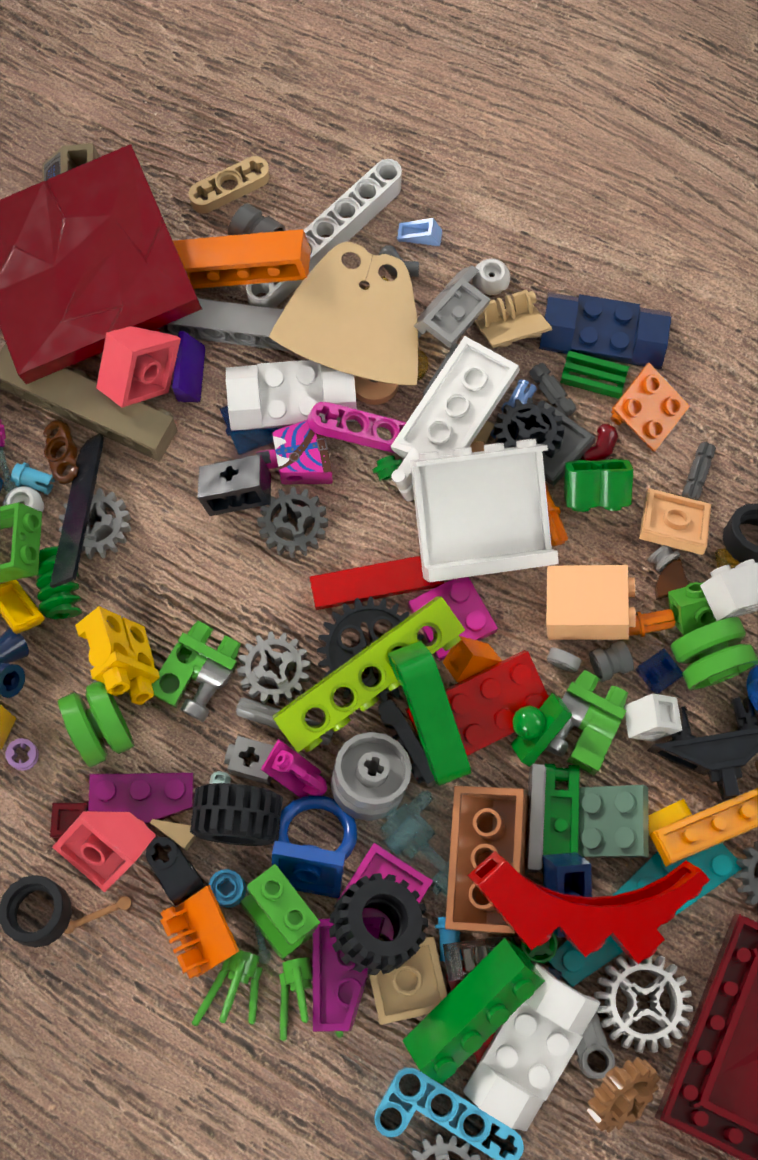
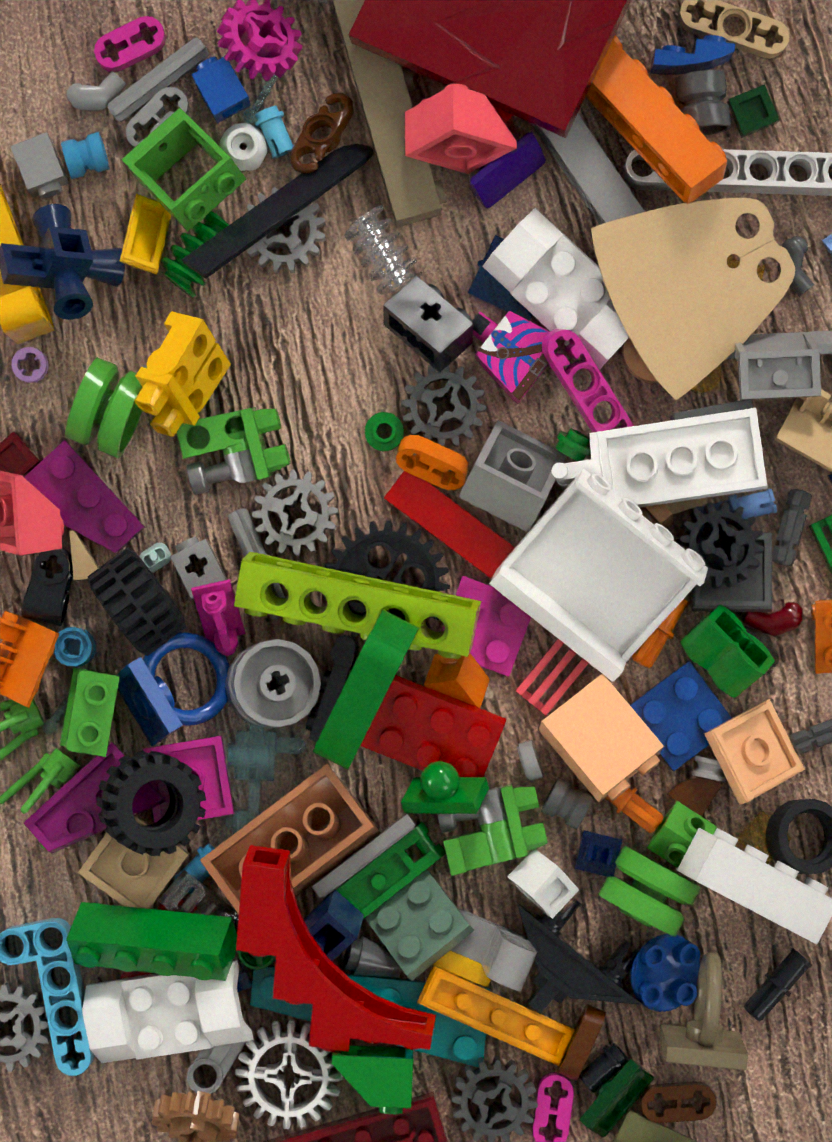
camera: 45 degrees right, 15 degrees up
(164, 477) = (381, 251): none -> clear piece
(227, 205) = (705, 54): none -> blue slope
(275, 581) = (379, 443): none -> green plate
(288, 210) = (753, 111): none -> dark green plate
(321, 557) = (432, 462): none -> orange beam
(375, 519) = (512, 476): none -> light grey slope
(533, 601) = (534, 698): none -> coral tile
(611, 875) = (370, 959): none -> dark grey cone
(614, 542) = (680, 714): none -> blue plate
(682, 776) = (502, 952): none -> light grey beam
(699, 934) = (379, 1075): none -> green slope

